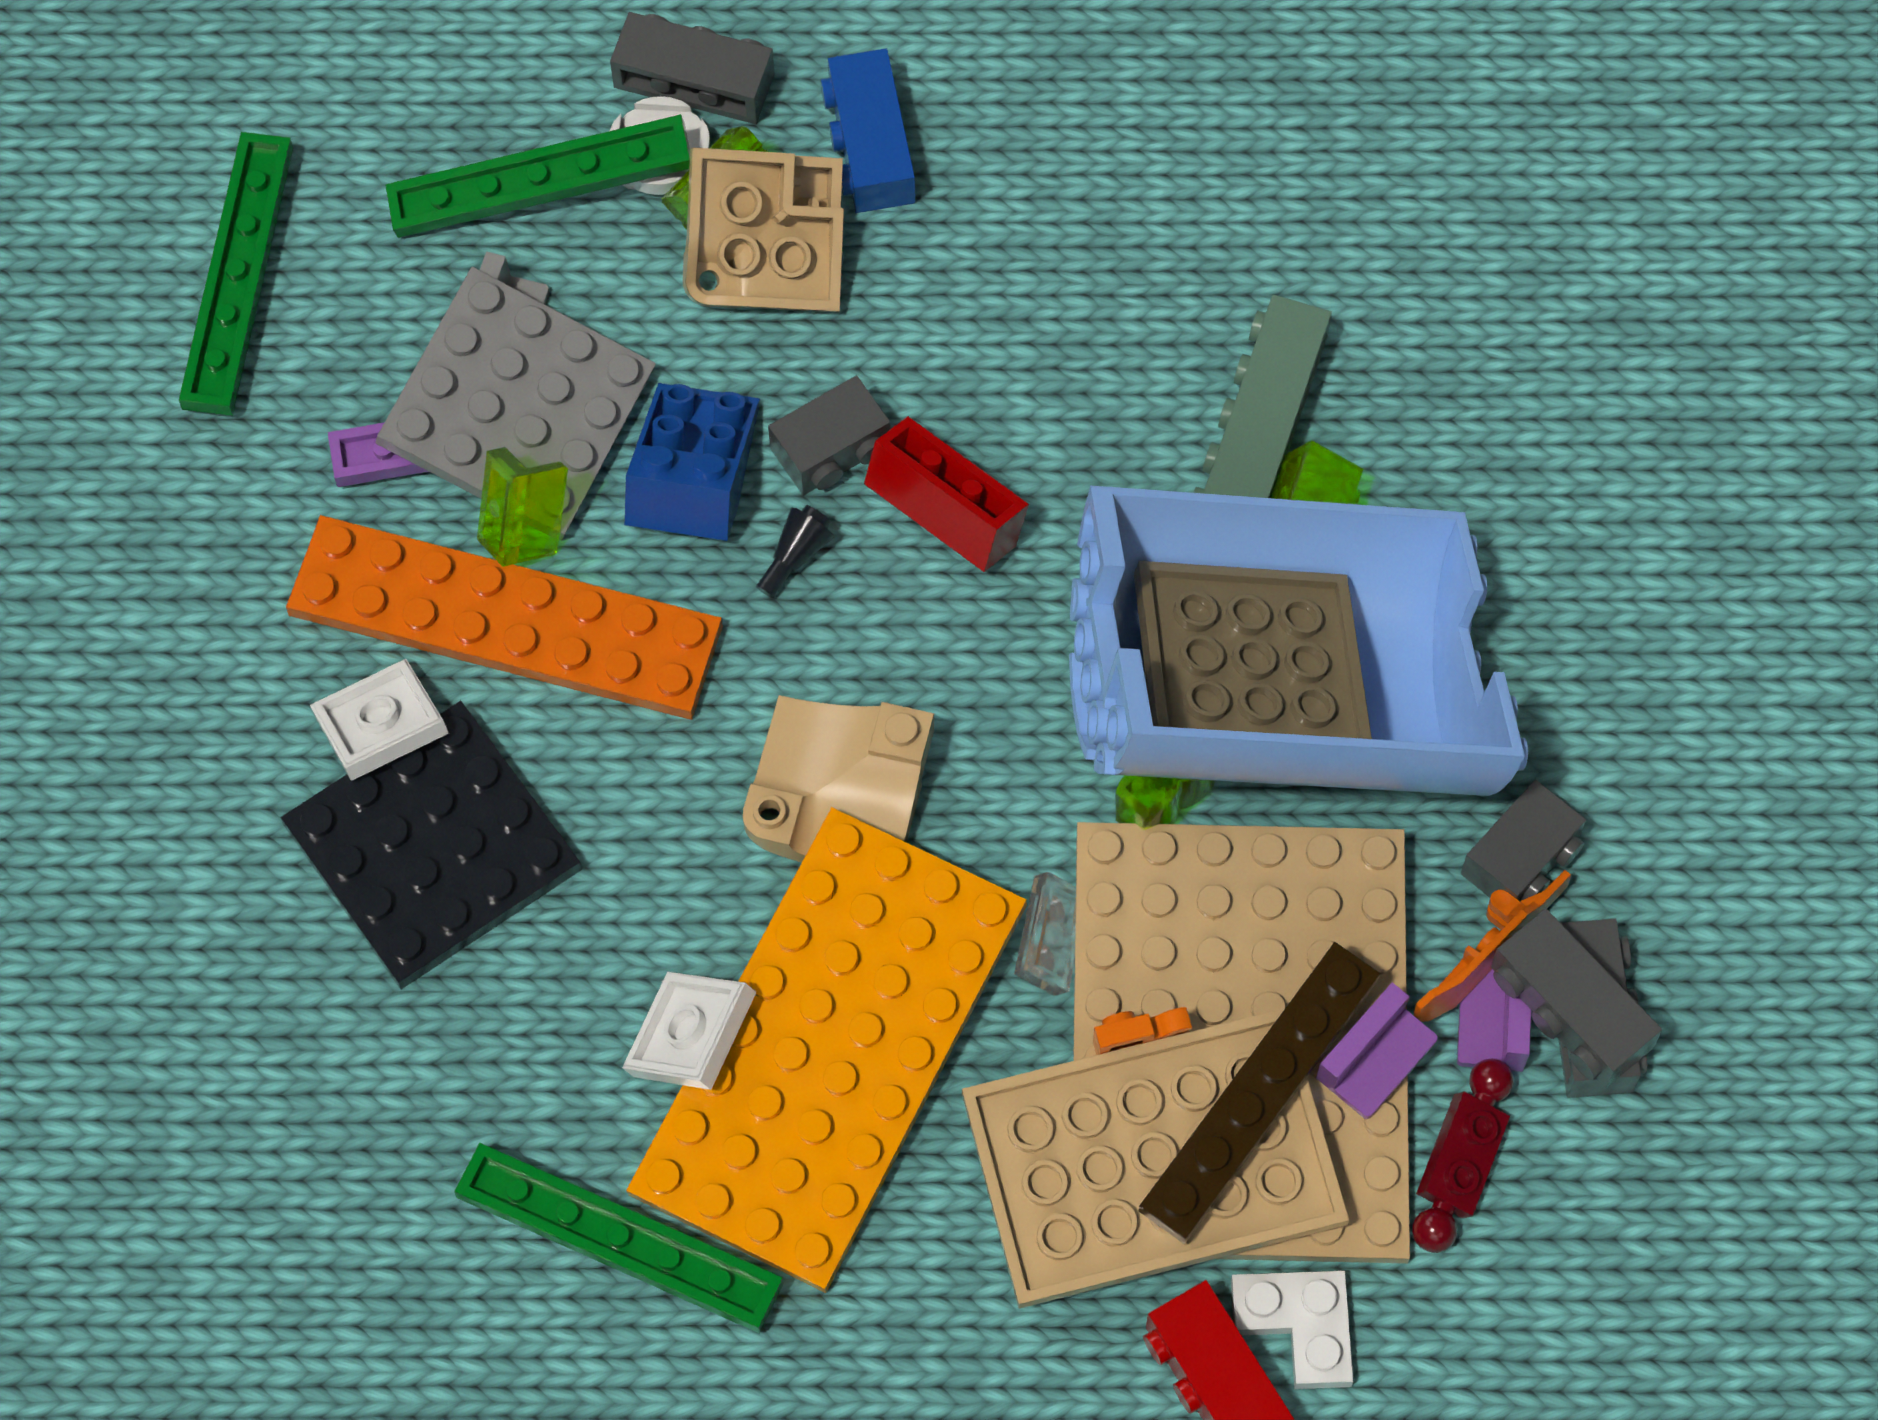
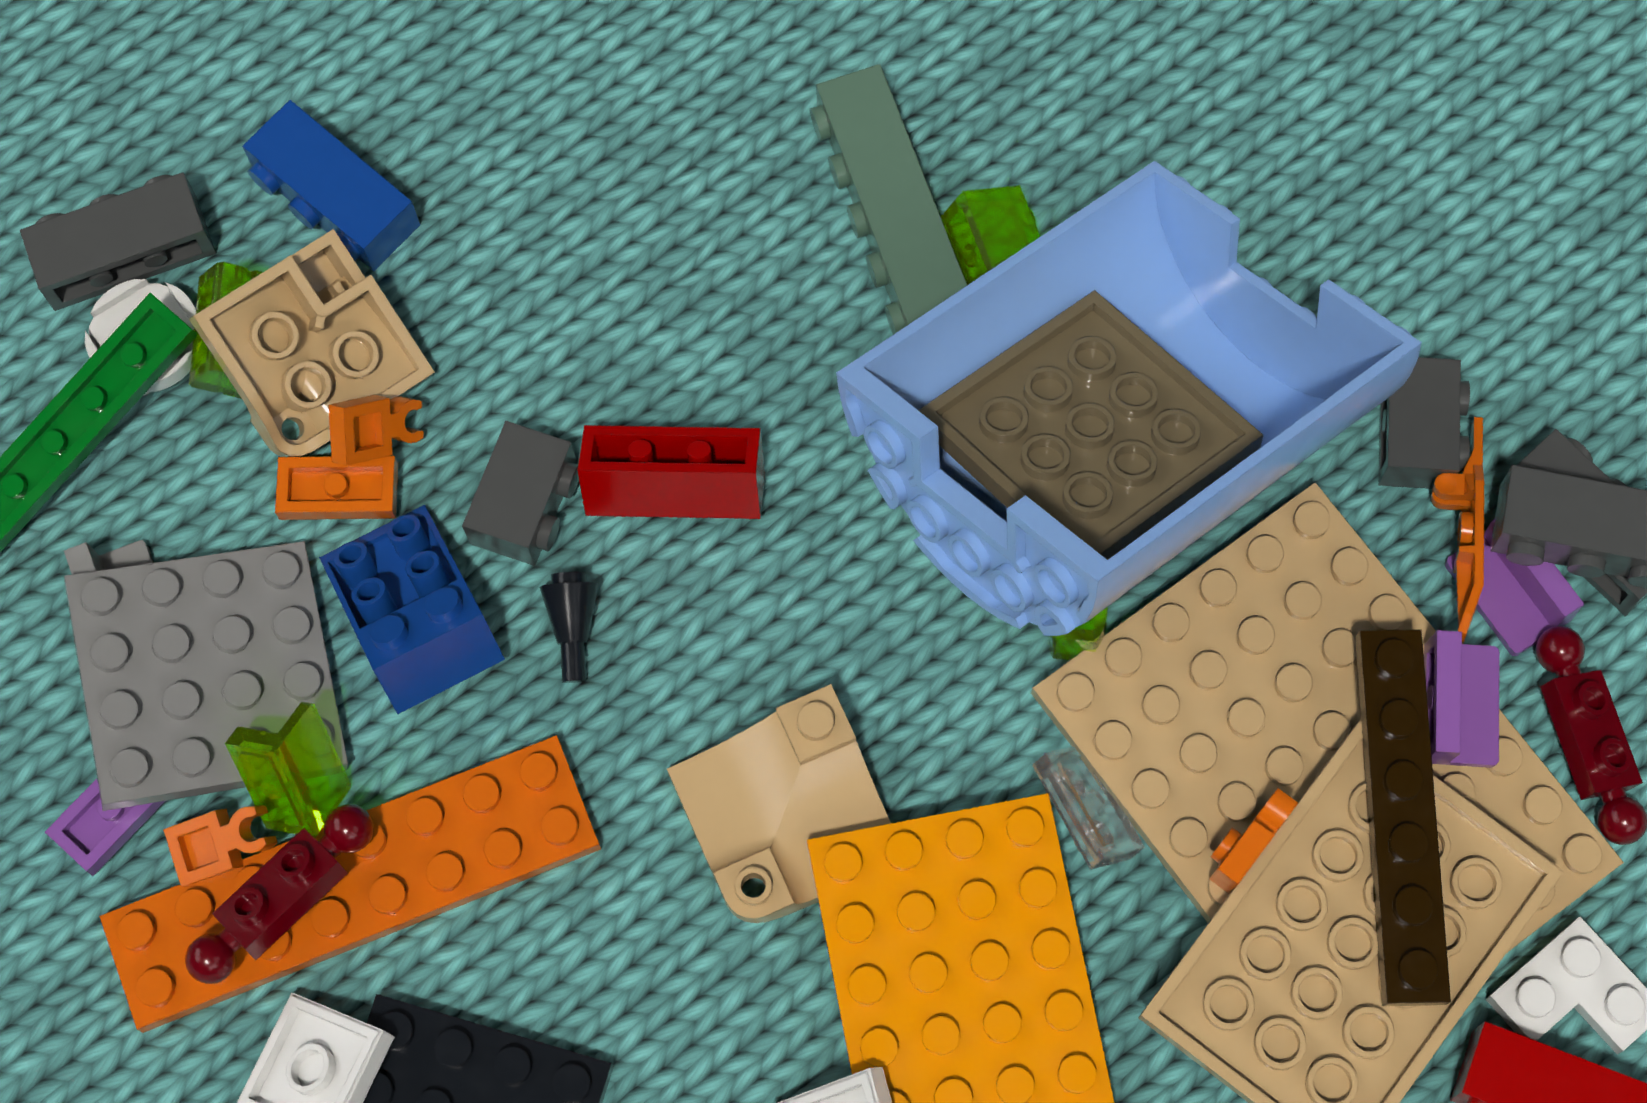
camera: 35 degrees left, 5 degrees up
(433, 518) = (214, 842): none -> orange plate
(447, 582) = (279, 894): none -> dark red plate
(707, 342) = (327, 490): none -> orange plate
(758, 312) = (366, 425): none -> orange plate

